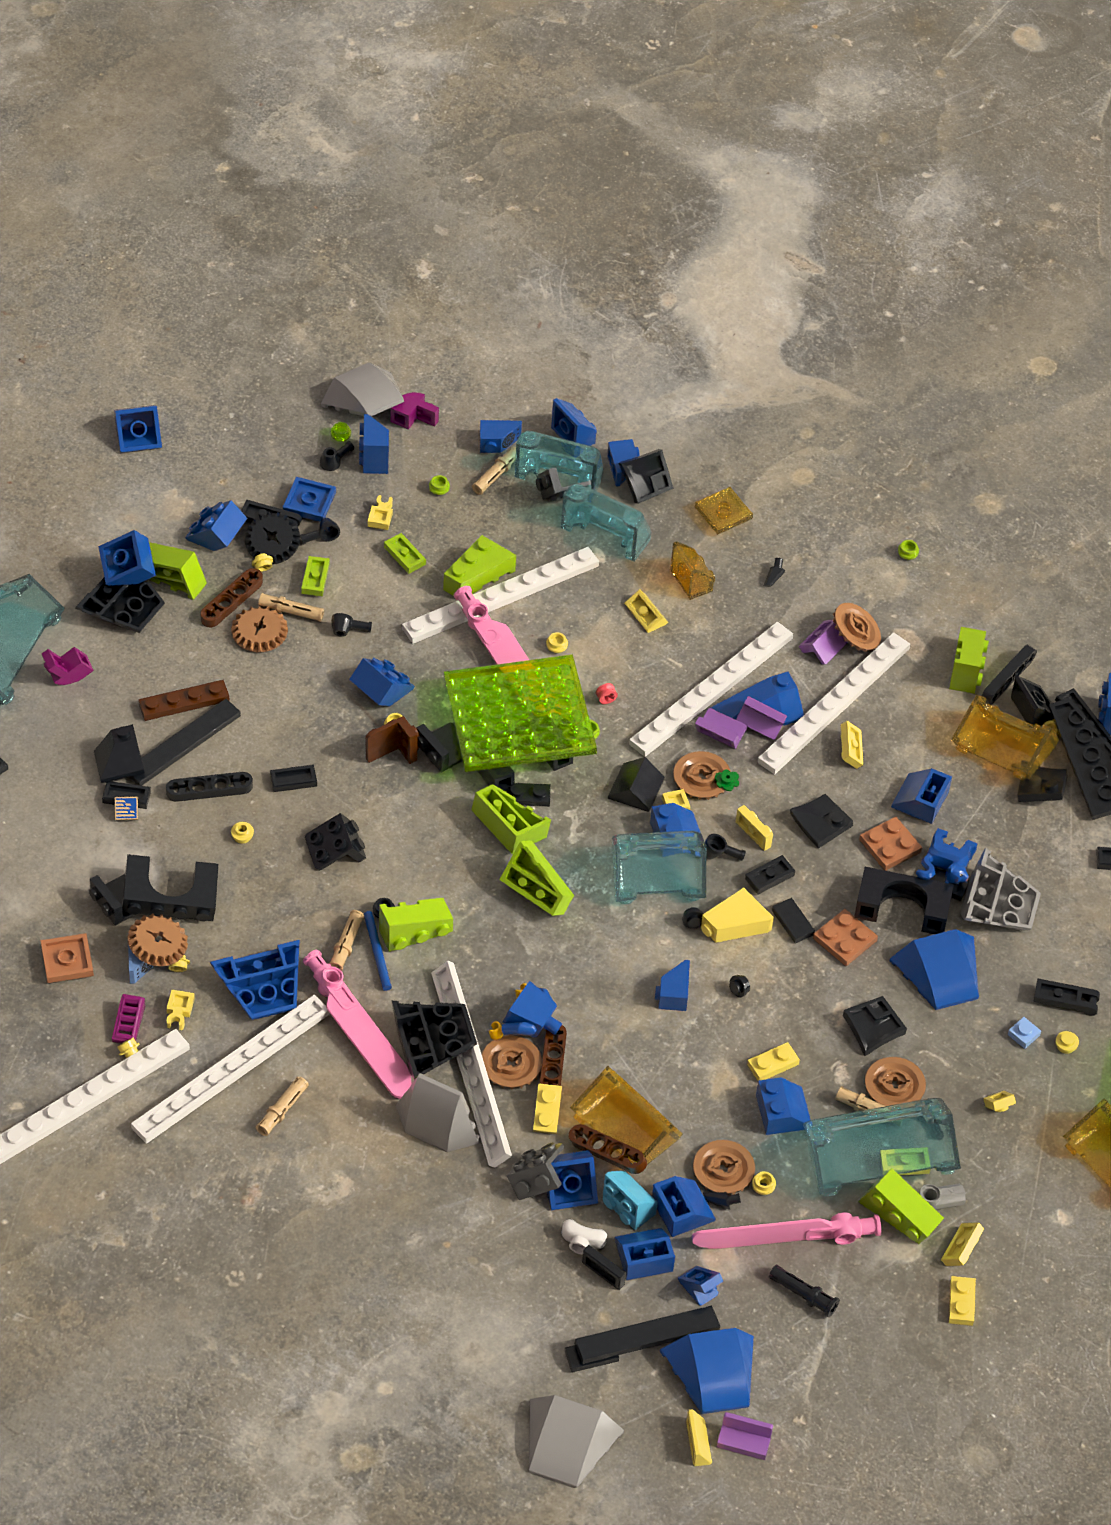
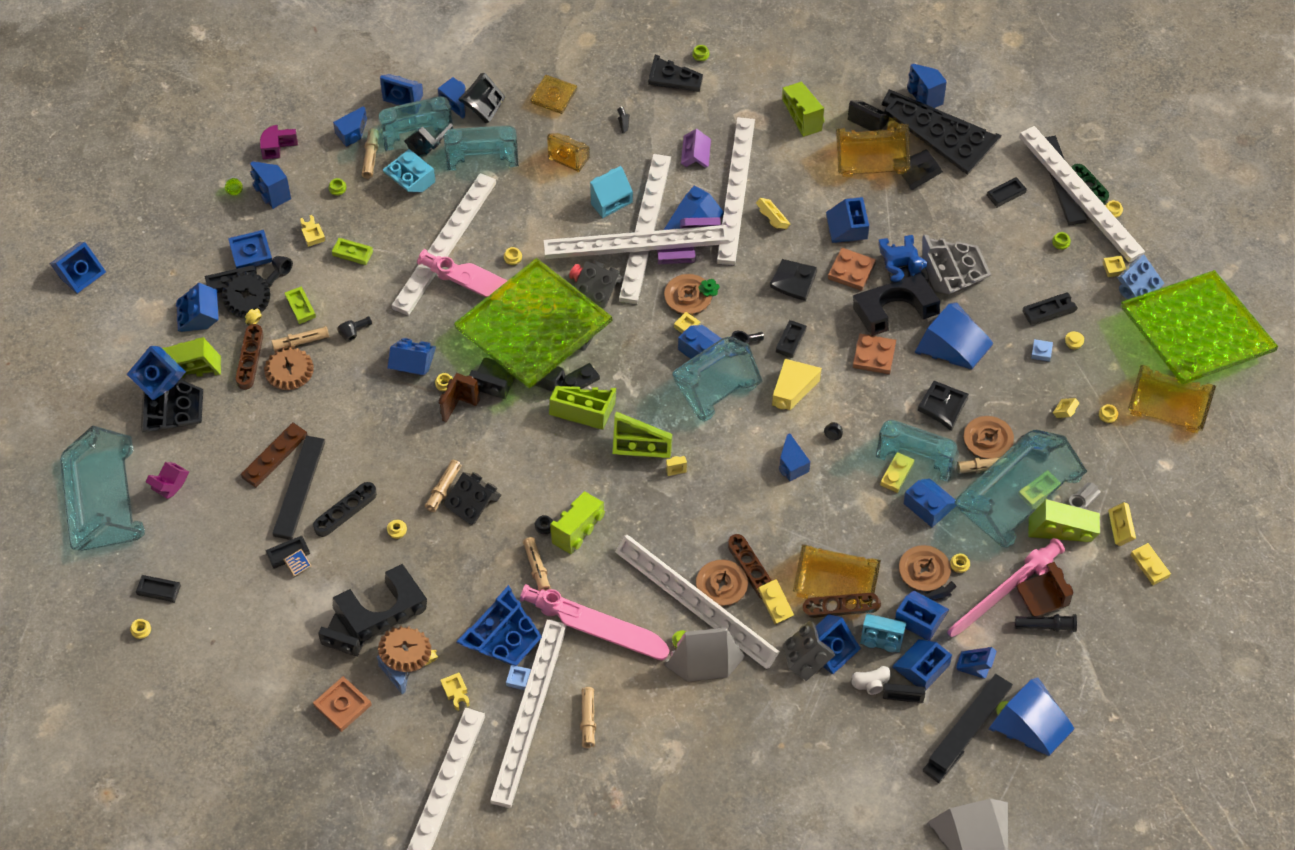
camera: 30 degrees left, 5 degrees up
(118, 755) = (261, 525): black slope -> none
(128, 1047) = (442, 744): light yellow plate -> none
(130, 1005) = (419, 710): magenta slope -> none
(245, 1030) = (518, 677): none -> light blue plate
(293, 778) = (401, 466): black tile -> none
(310, 820) = (445, 482): none -> tan pin
(330, 458) = (241, 210): black bar -> none
(363, 391) = (230, 146): light grey wedge -> none
(377, 950) = (563, 558): blue bar -> none
(432, 1033) = (655, 598): black wedge -> none
(478, 566) = (415, 230): lime wedge -> none
(517, 509) = (411, 172): none -> medium azure slope
(528, 1014) = (711, 540): blue torso -> none
(554, 927) = (676, 465): none -> light yellow plate
(618, 712) = (598, 282): none -> dark grey bracket
(637, 784) = (648, 327): black slope -> none
(645, 611) = (556, 198): light yellow slope -> none
(686, 694) = (636, 242): none -> white plate
(692, 917) = (764, 401): black plate -> none
(698, 1439) = (1060, 776): light yellow slope -> none
(700, 633) = (610, 192): none -> medium azure slope
(745, 1436) = (1090, 753): medium lavender panel -> none
(754, 827) = (754, 311): light yellow plate -> none
(792, 1025) = (900, 435): none -> clear light blue windscreen
(793, 920) = (831, 362): black tile -> none
(826, 1261) = (1046, 592): none -> reddish brown bracket
(857, 626) = (712, 127): medium nougat gear -> none
(858, 555) = (669, 75): none -> black wing
(1008, 674) = (836, 103): black beam -> none
(1041, 1132) = (1108, 413): none -> light yellow plate

